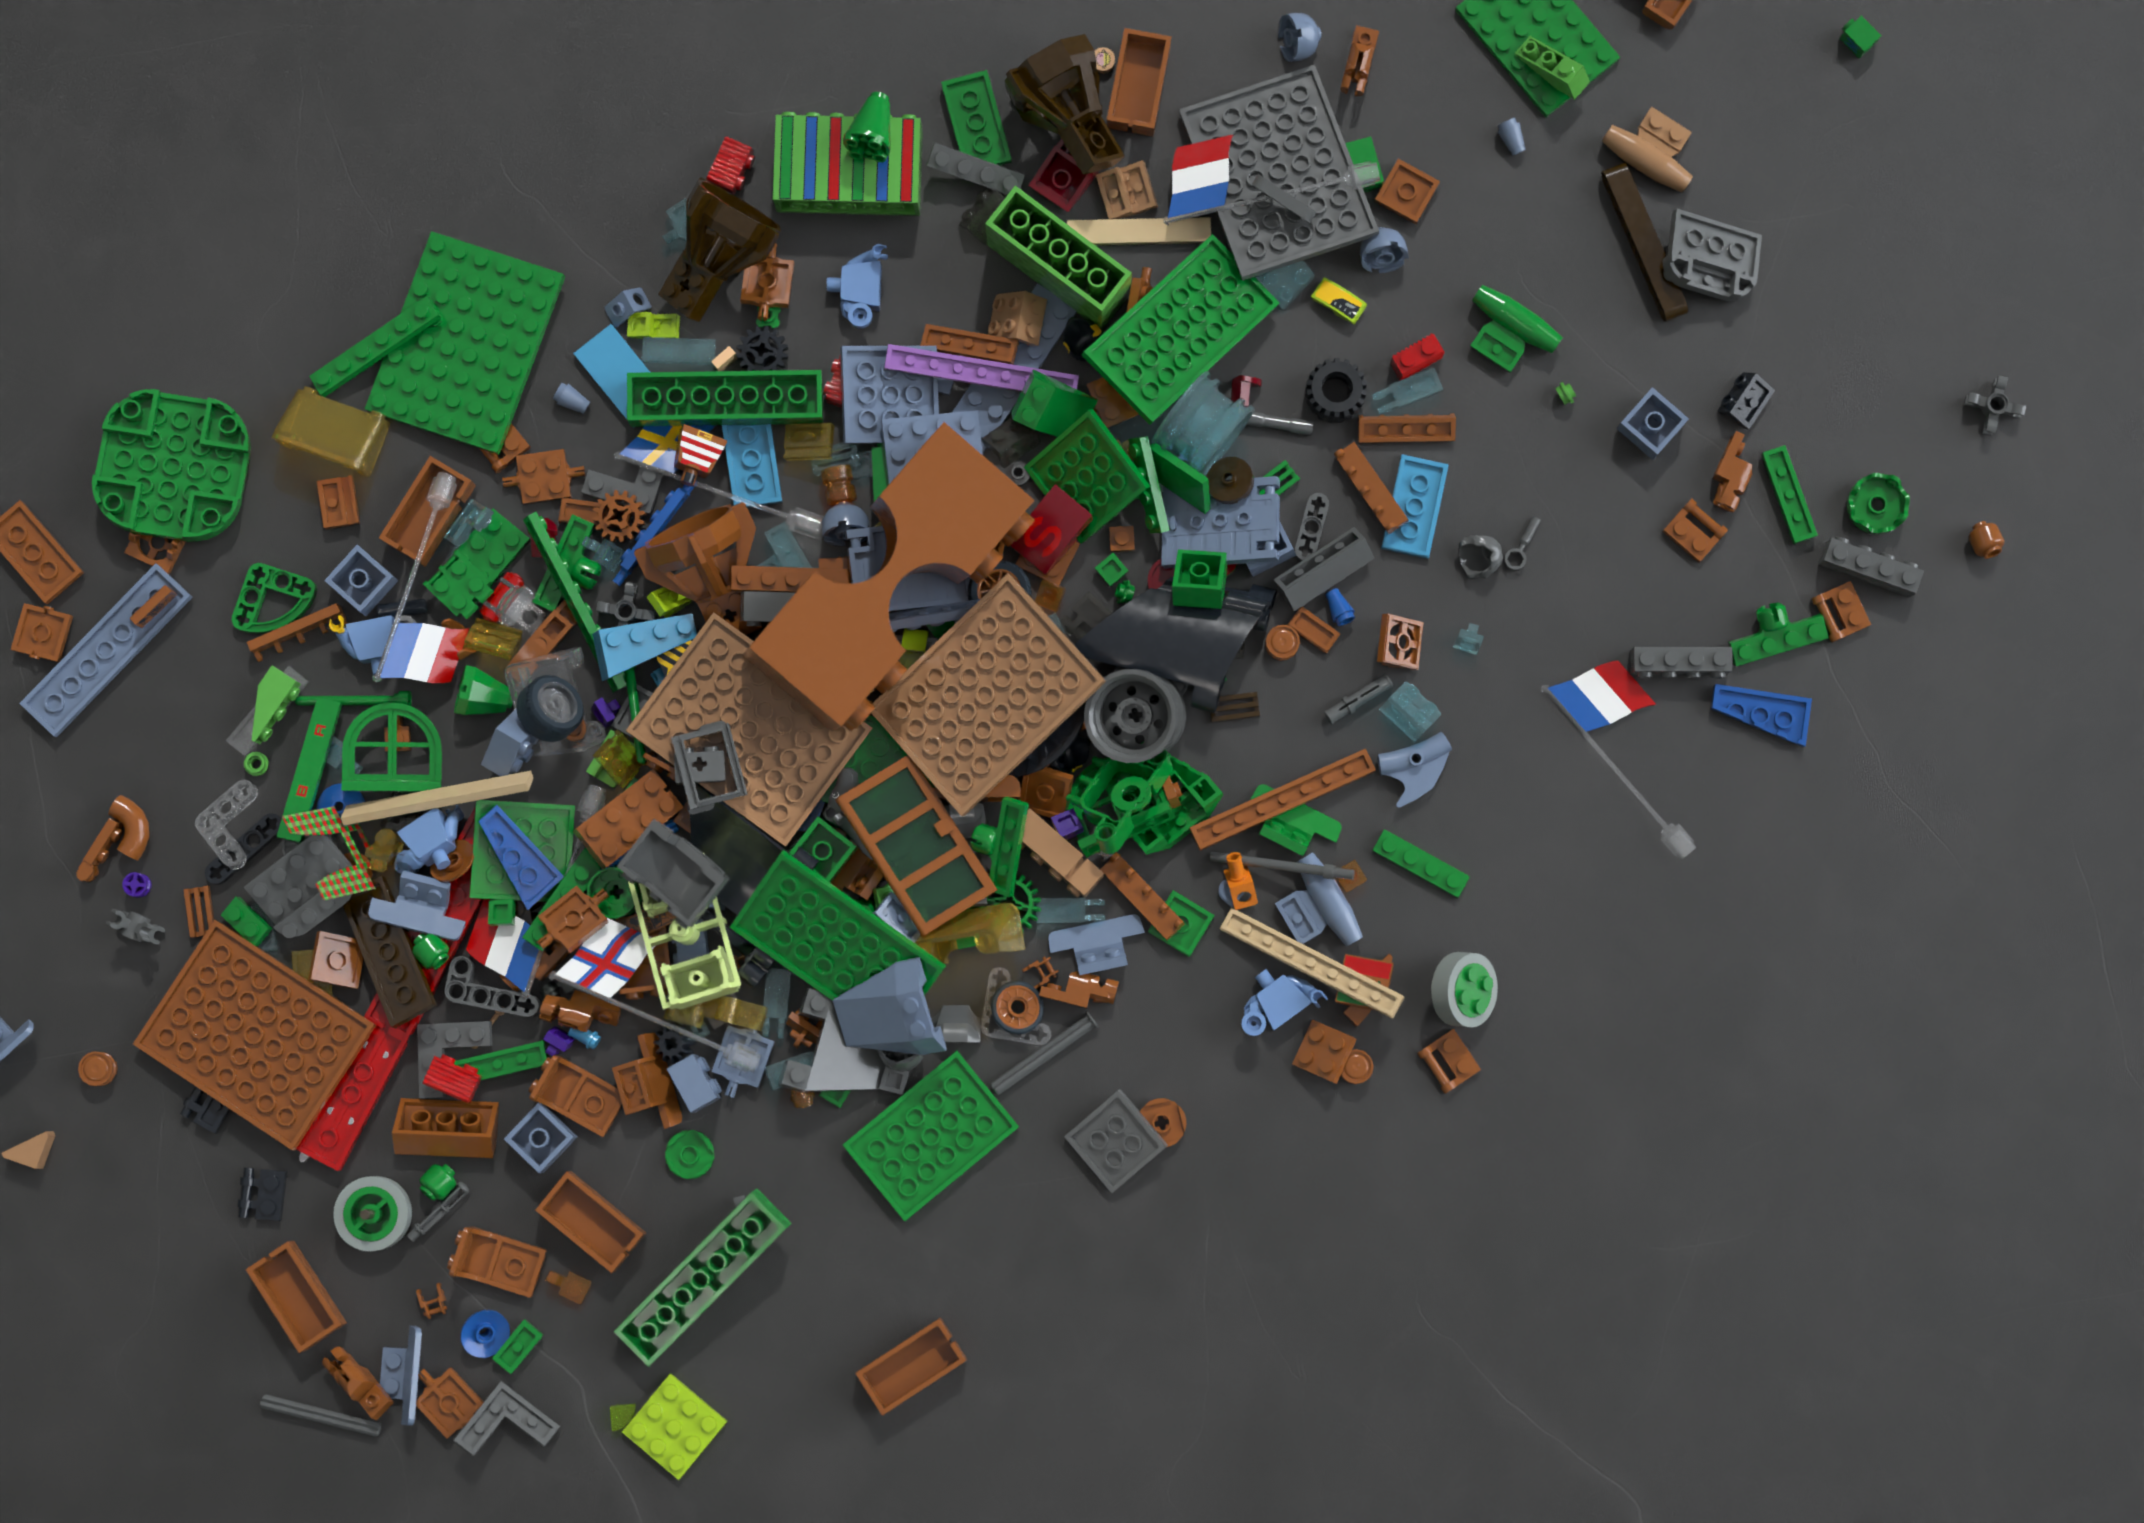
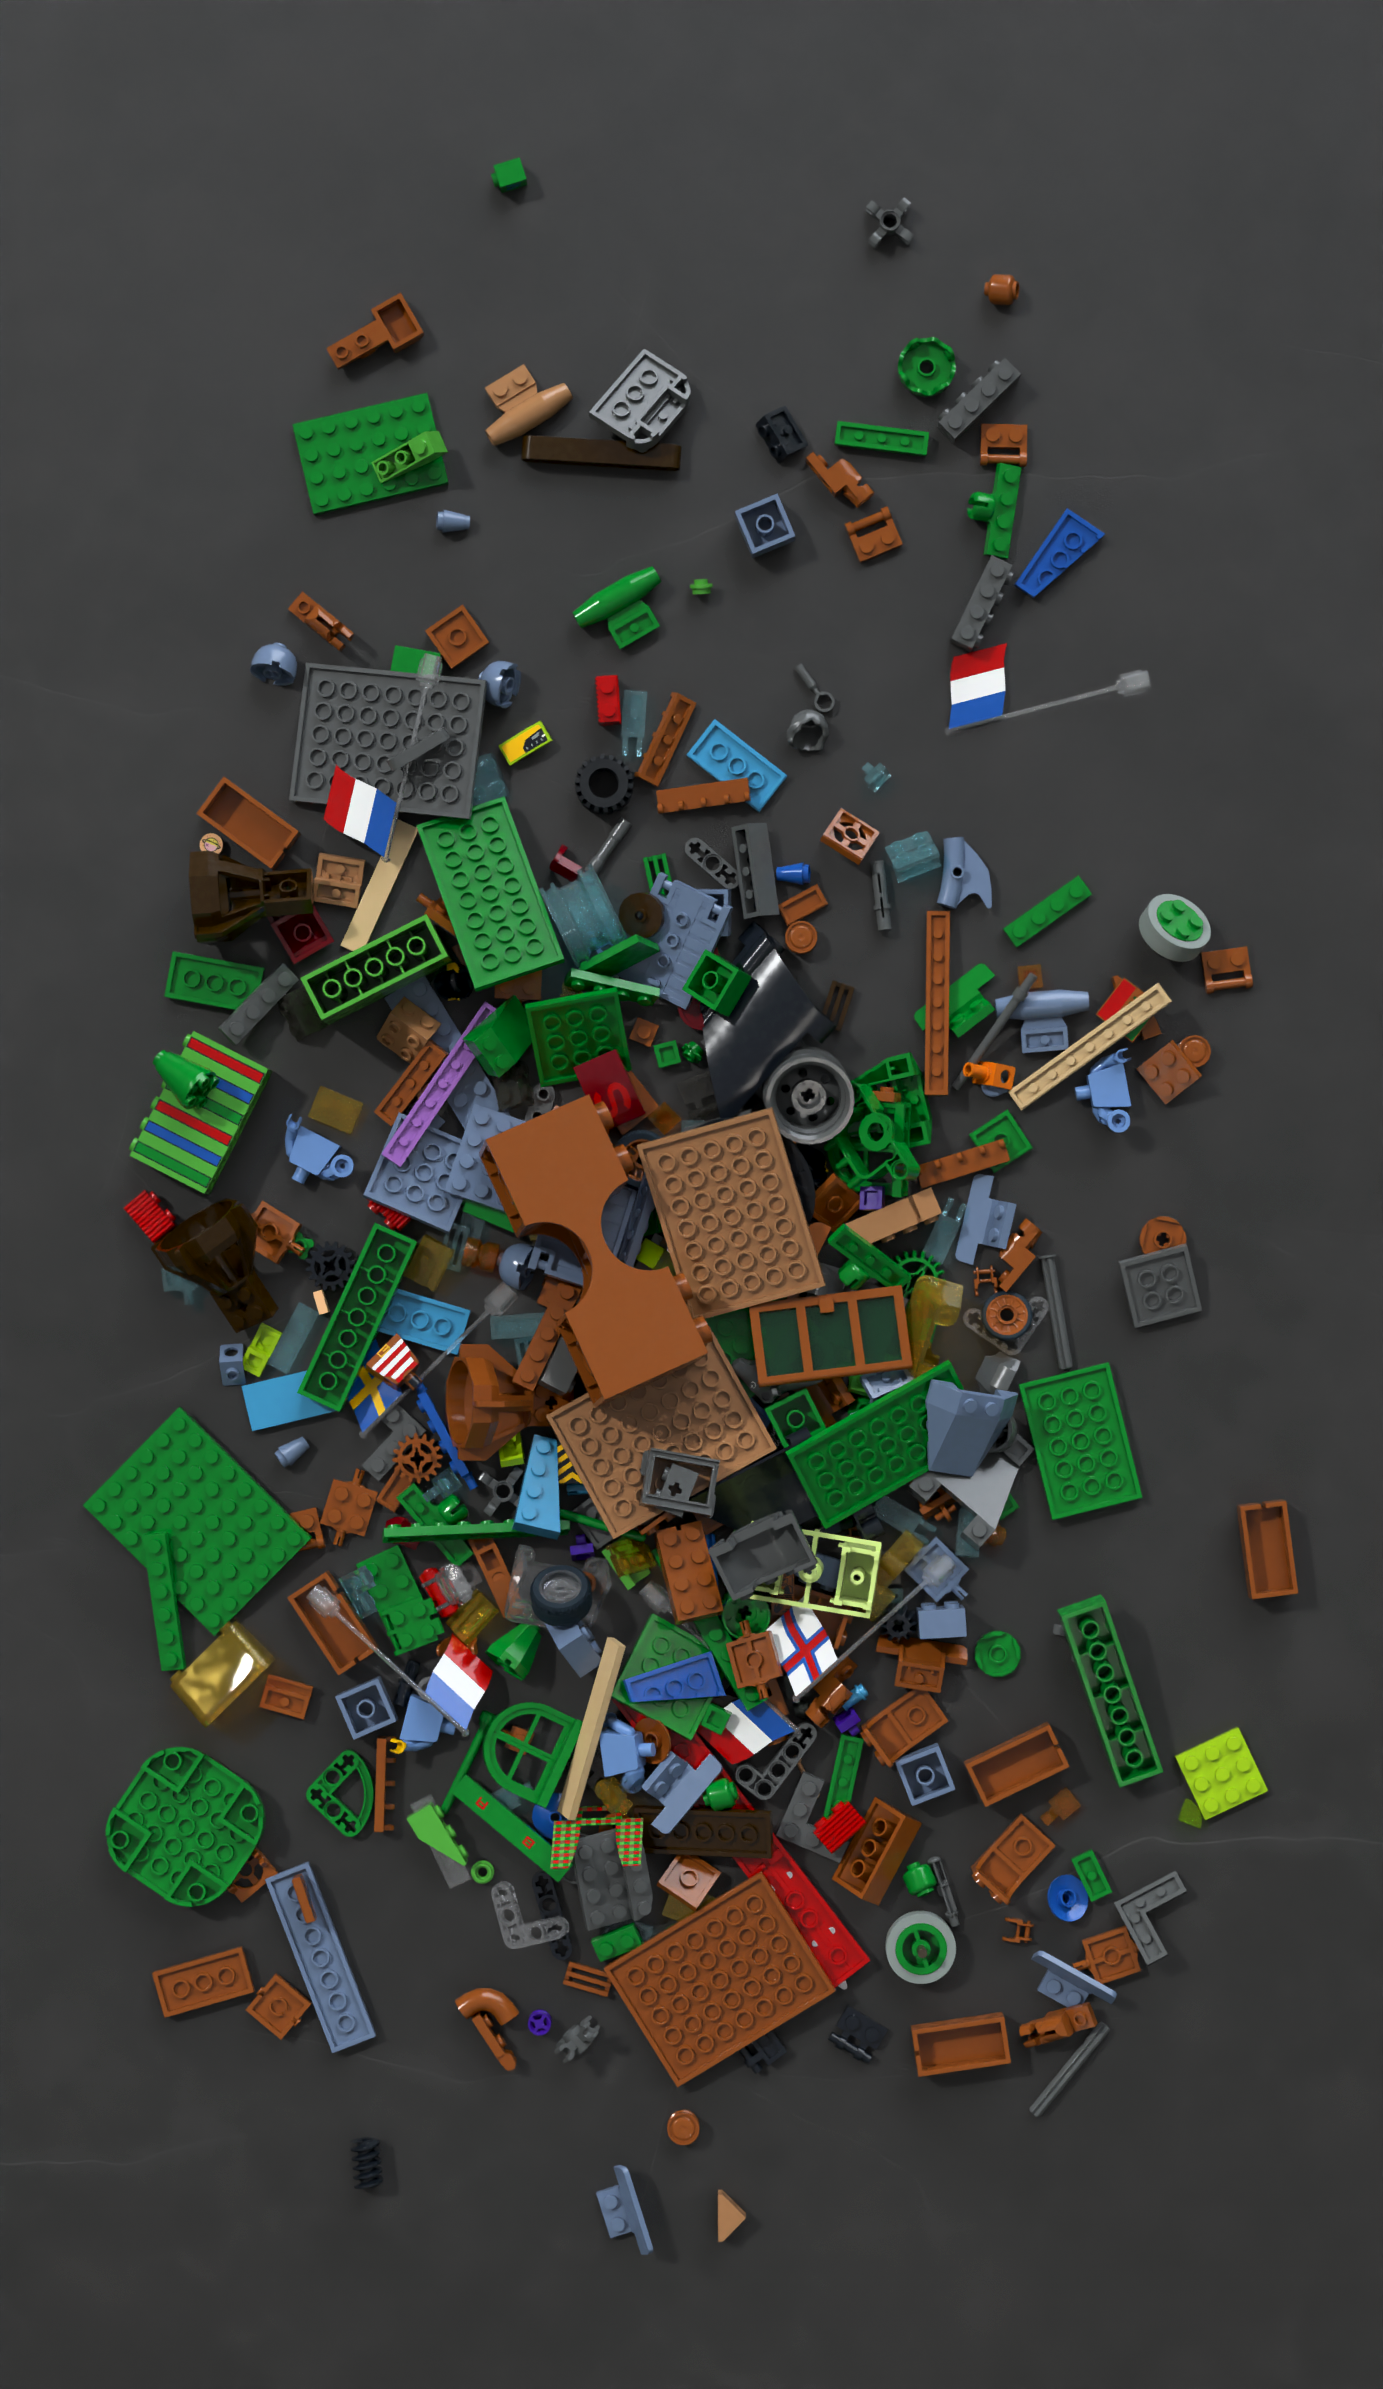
camera: 65 degrees left, 5 degrees up
(911, 289) = (335, 1109): none -> clear yellow plate

